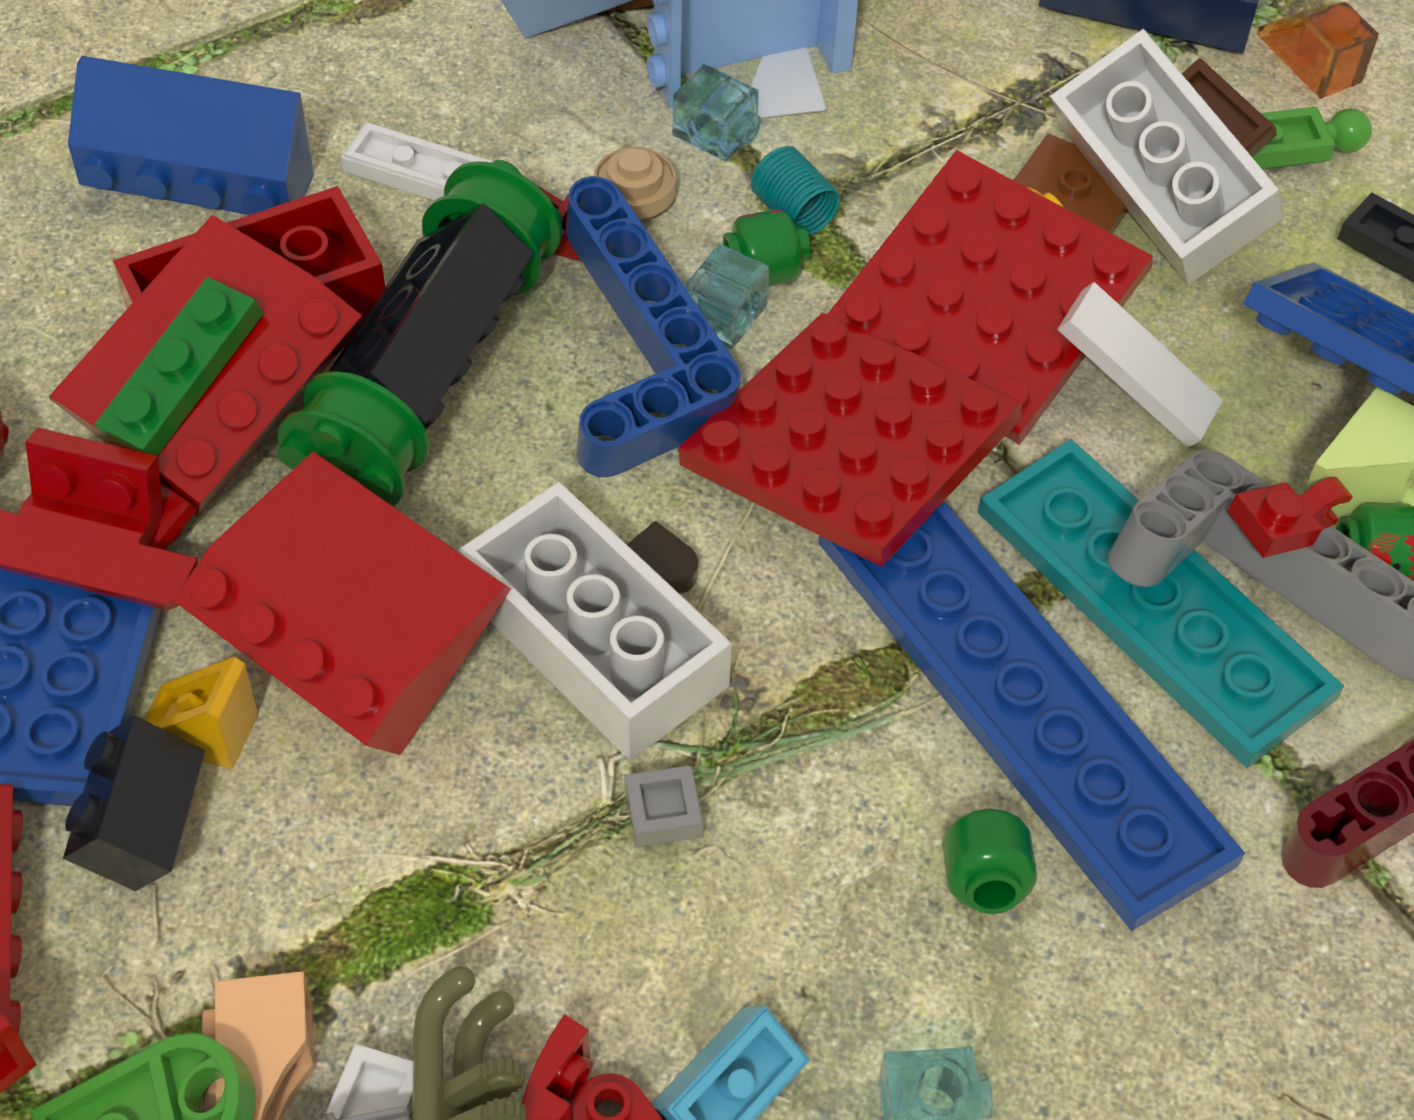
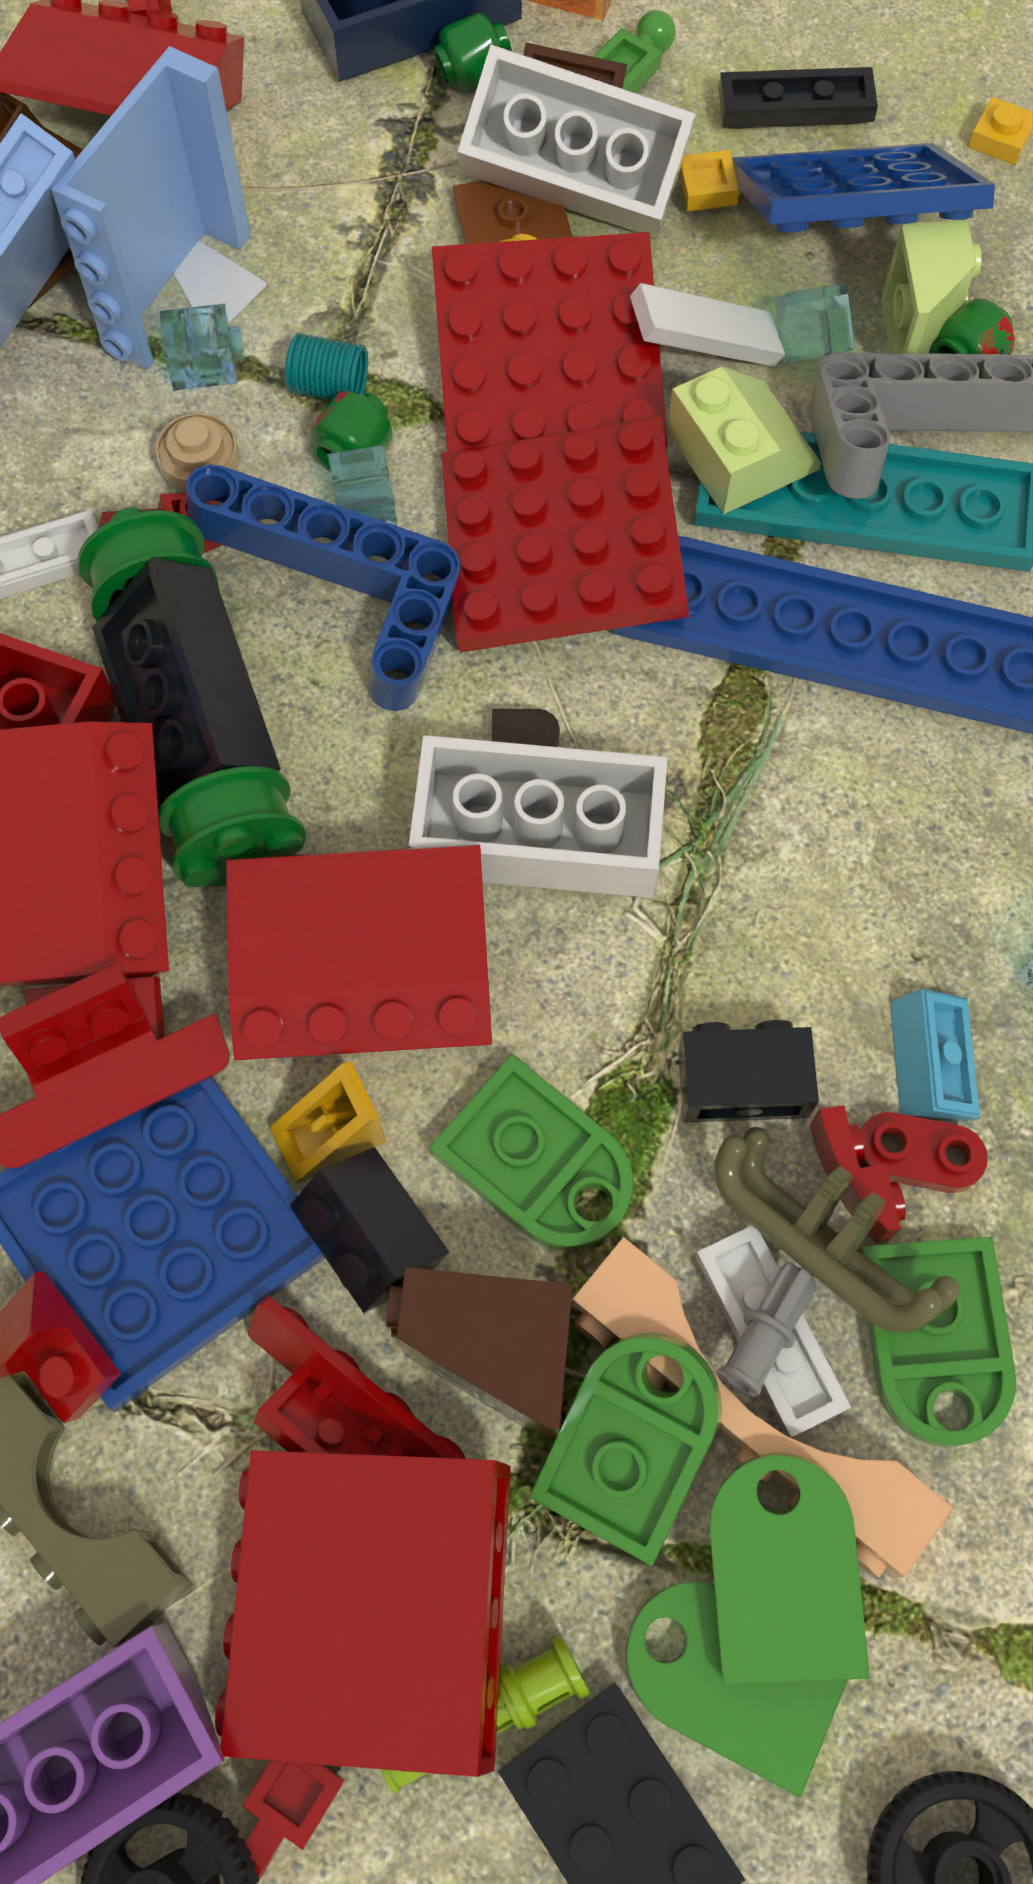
camera: 40 degrees left, 15 degrees up
(120, 954) = (489, 1338): none -> reddish brown slope
(179, 368) = (59, 879): green plate -> none
(322, 868) = (532, 1157): none -> bright green tile
(548, 946) = (747, 1072): none -> black brick
(663, 806) = (713, 910): light grey plate -> none
(989, 860) = (952, 768): green head -> none
(1074, 461) = (737, 437): none -> yellowish green slope
(1176, 36) = (465, 47): none -> green head
(1253, 431) = (814, 323): none -> clear light blue panel
(1270, 257) = (708, 180): none -> yellow plate
(1284, 522) = (925, 372): red plate -> none

